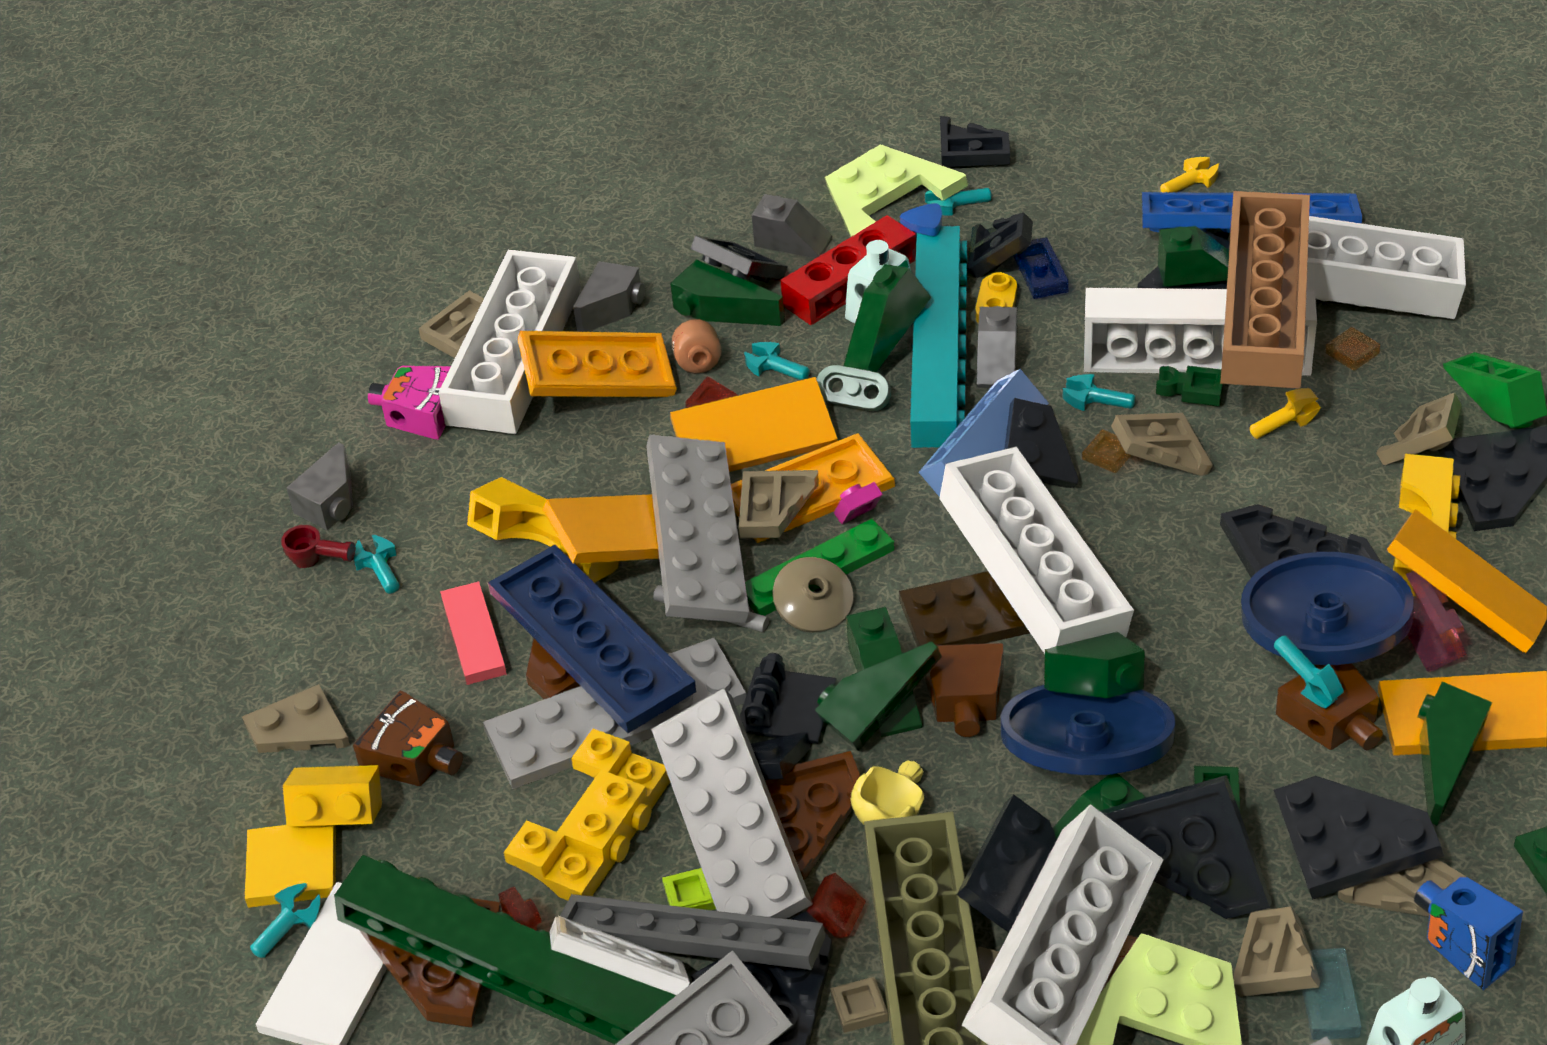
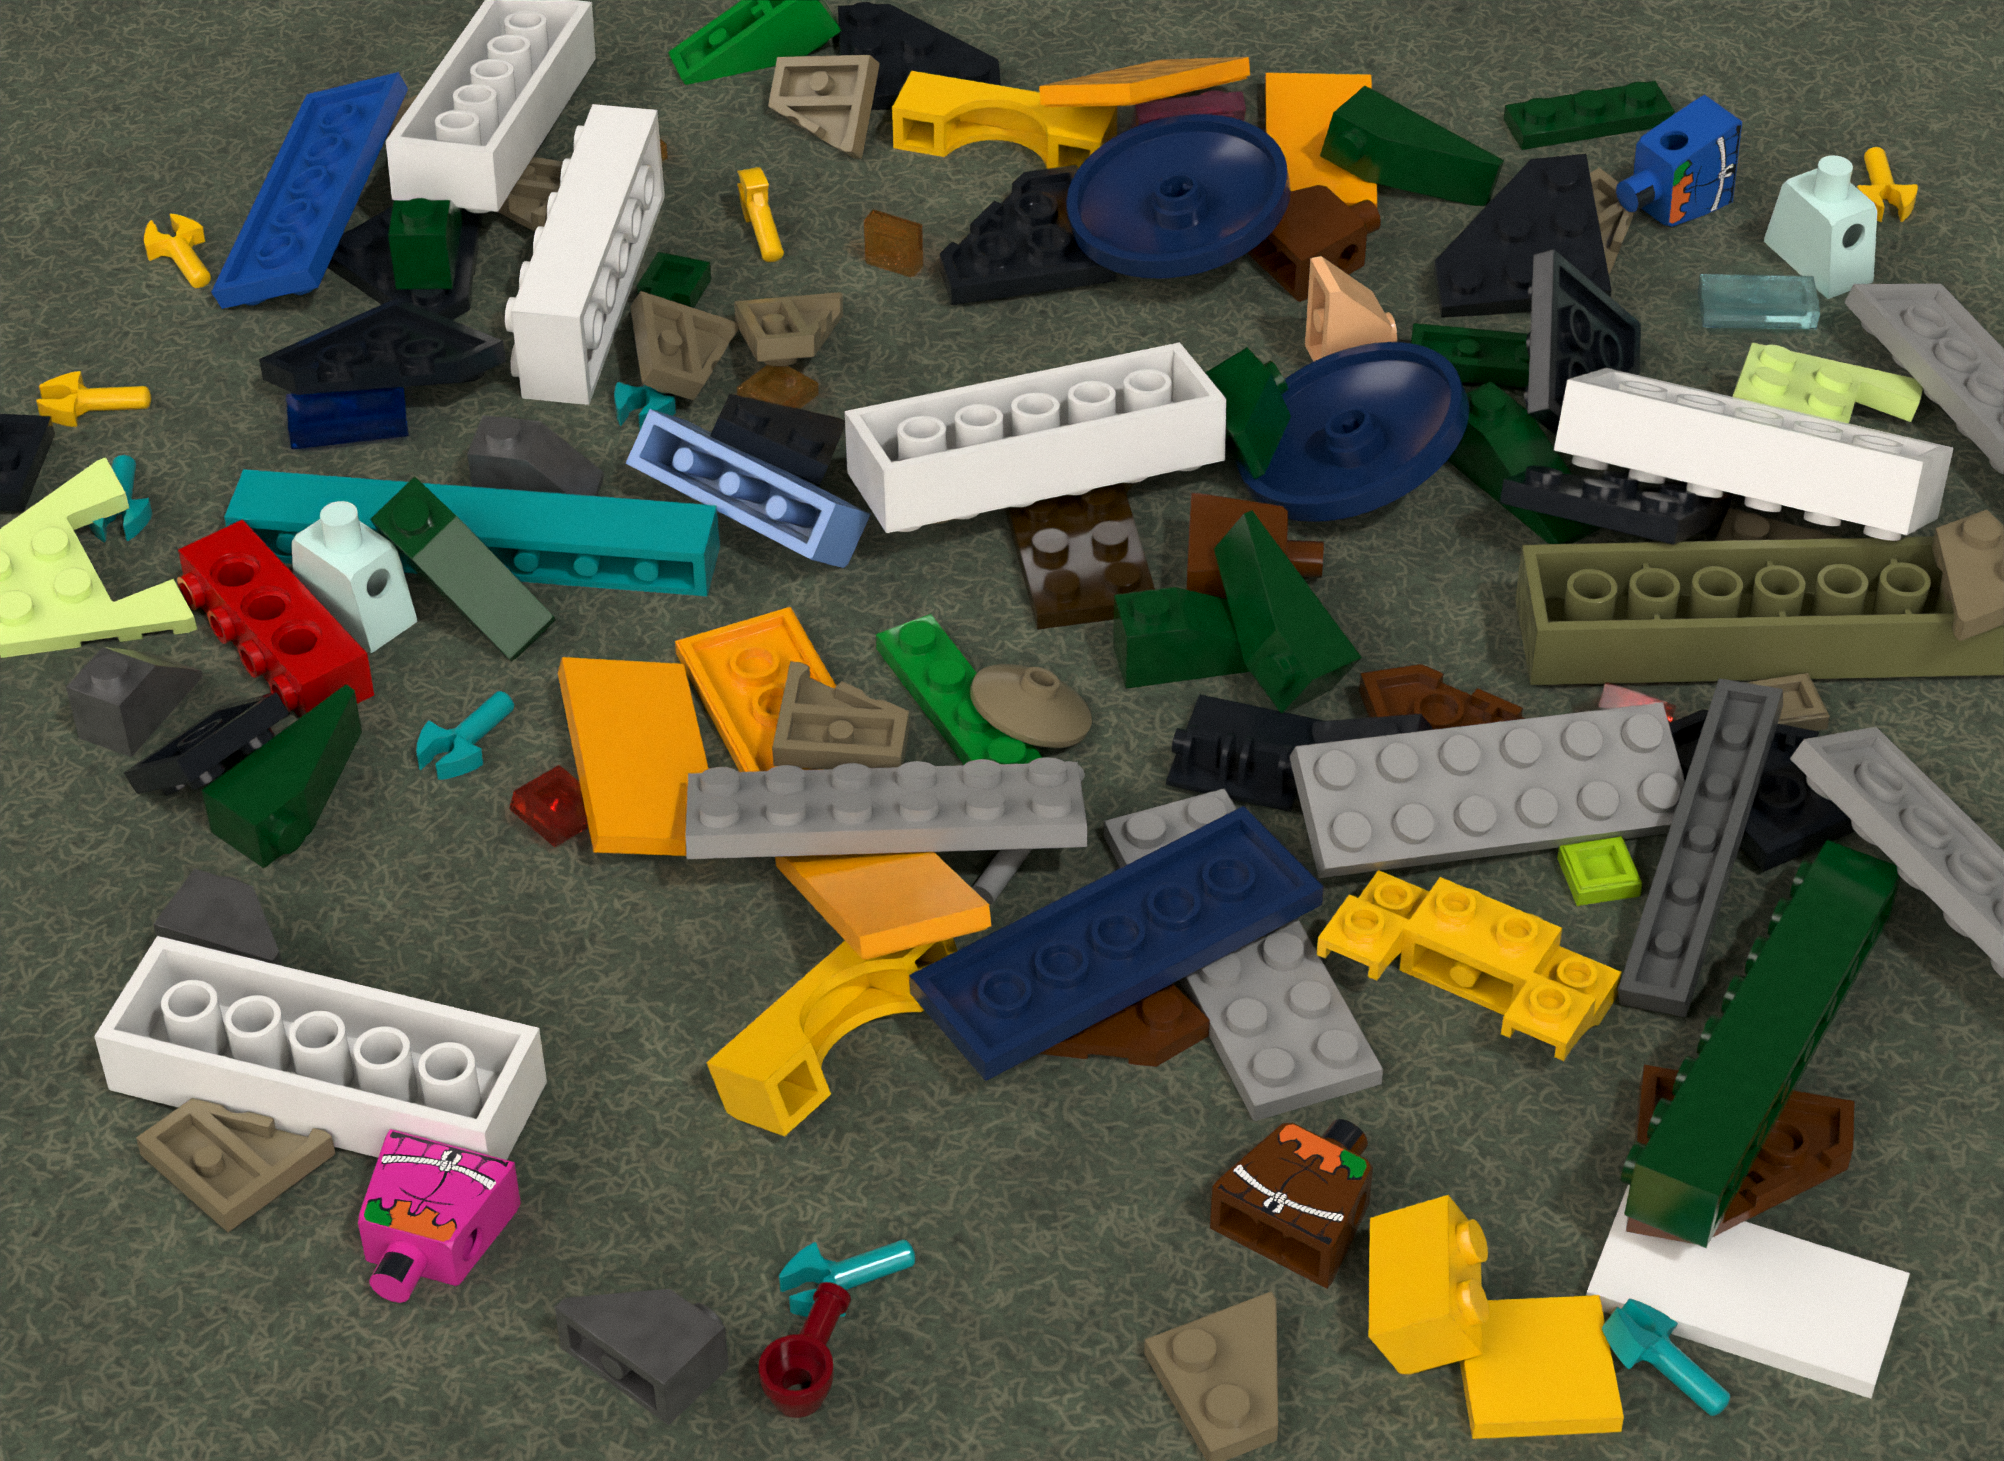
camera: 90 degrees left, 0 degrees up
(473, 633) = (1038, 1132): coral tile -> none
(522, 911) = (1664, 1042): clear red plate -> none
(596, 364) = (443, 932): light orange tile -> none
(618, 955) = (1782, 892): white tile -> none
(696, 342) = (410, 817): nougat head -> none
(855, 388) = (574, 637): plate -> none
(857, 501) = (848, 641): dark pink plate -> none
(888, 794) = (1452, 638): light yellow hair -> none
(923, 219) = (220, 501): blue tile -> none
(995, 245) = (288, 431): black wing -> none
(996, 290) = (399, 463): yellow plate -> none
(1042, 169) = (67, 398): none -> yellow bar
(1088, 260) = (384, 349): none -> black plate
(1121, 388) = (677, 344): none -> dark tan wing
(1217, 718) = (1342, 312): none -> light nougat slope
(1266, 290) = (619, 115): medium nougat brick -> none
(1266, 480) = (893, 243): none -> clear orange tile
(1274, 955) = (1711, 325): dark tan wing -> none
(1321, 685) = (1311, 213): teal bar -> none

